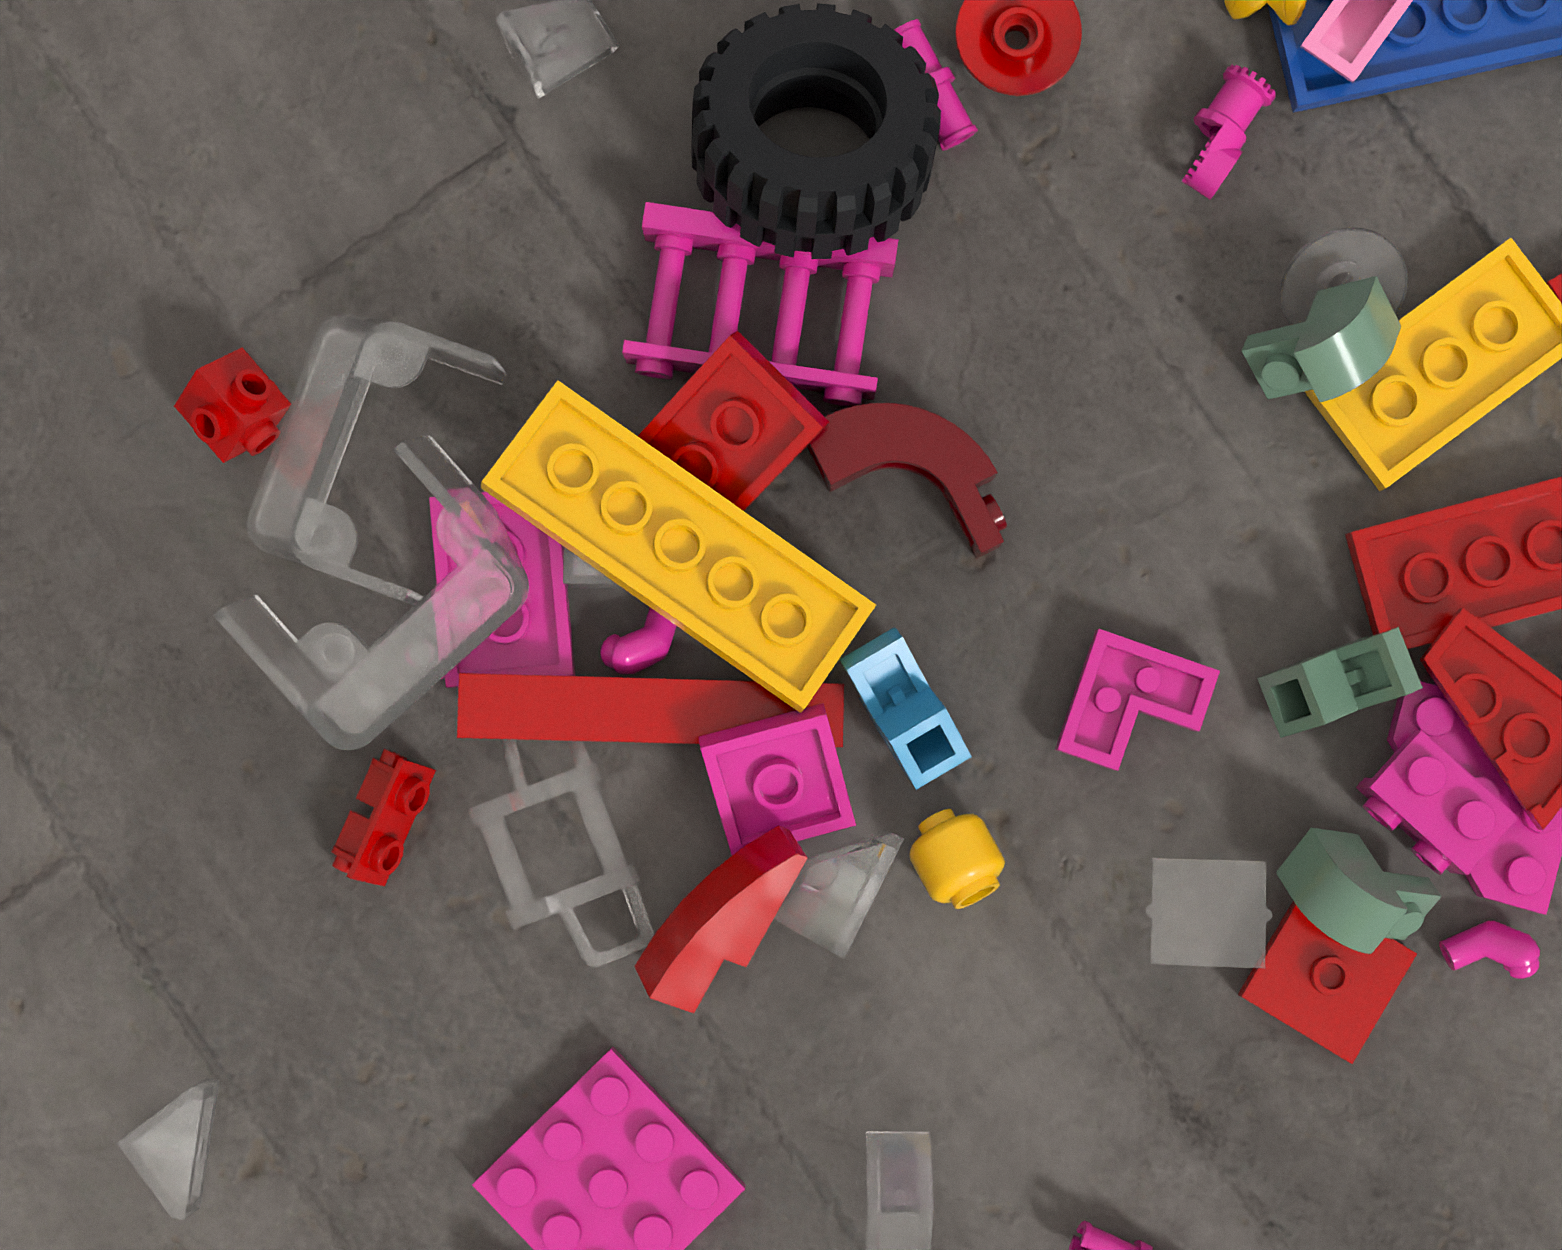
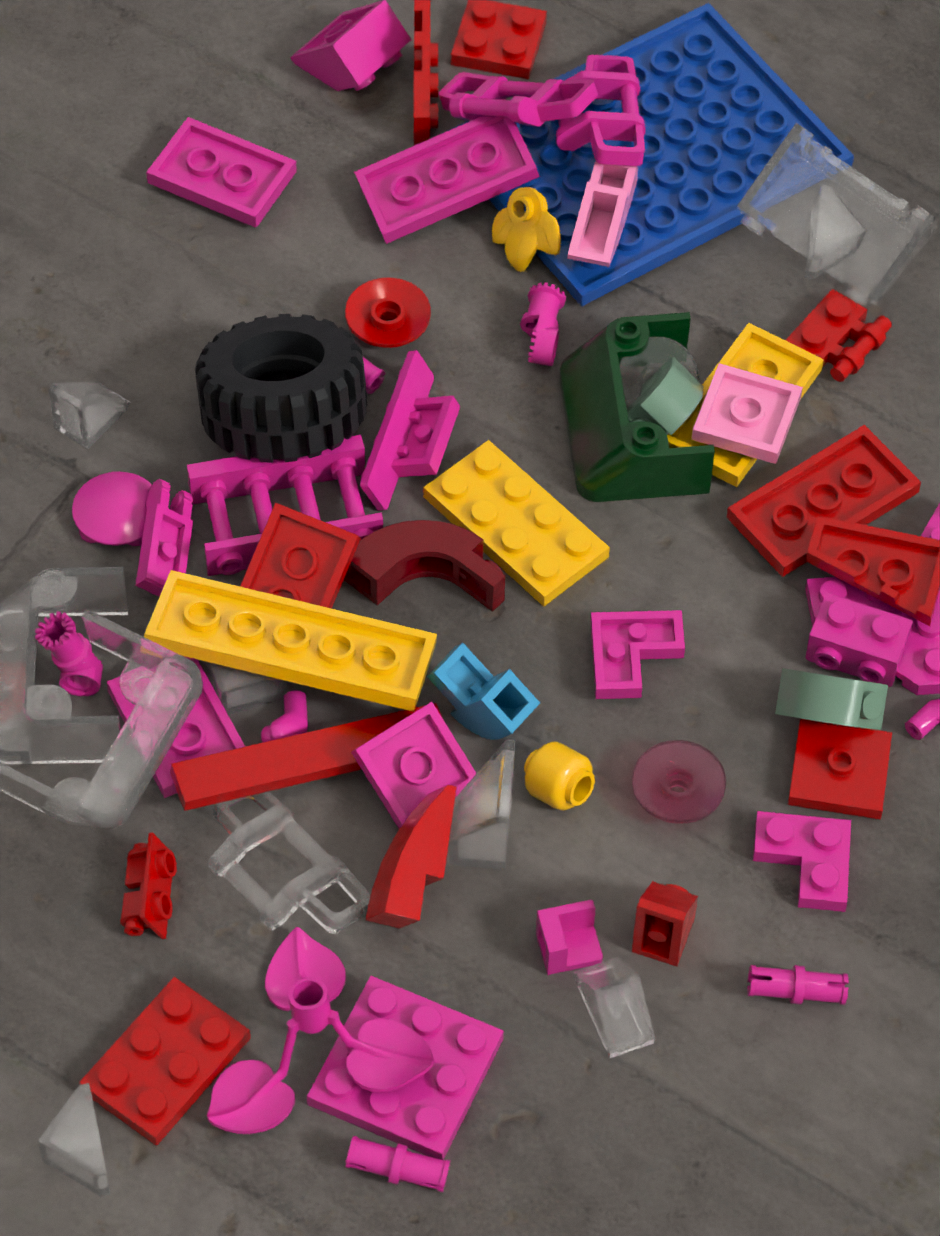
camera: 25 degrees left, 30 degrees down
(322, 1062) = (165, 1060): none -> red plate
(364, 442) = (70, 654): none -> dark pink connector
(540, 217) = (112, 509): none -> dark pink dish
(582, 300) = (164, 537): none -> dark pink hinge
(582, 1183) = (305, 981): none -> dark pink plant
(876, 1092) = (568, 937): none -> dark pink panel
(975, 247) = (411, 433): none -> dark pink bracket
(1006, 1125) = (663, 922): none -> red slope
(1060, 435) = (519, 521): none -> yellow plate
(1140, 934) = (680, 765): none -> clear pink dish
(1208, 913) = (749, 754): clear piece -> none
(1221, 371) = (608, 452): none -> dark green windscreen
(1248, 1082) = (816, 846): none -> dark pink plate
(1339, 682) = (765, 591): sand green brick -> none
(1441, 401) = (747, 413): none -> bright pink plate

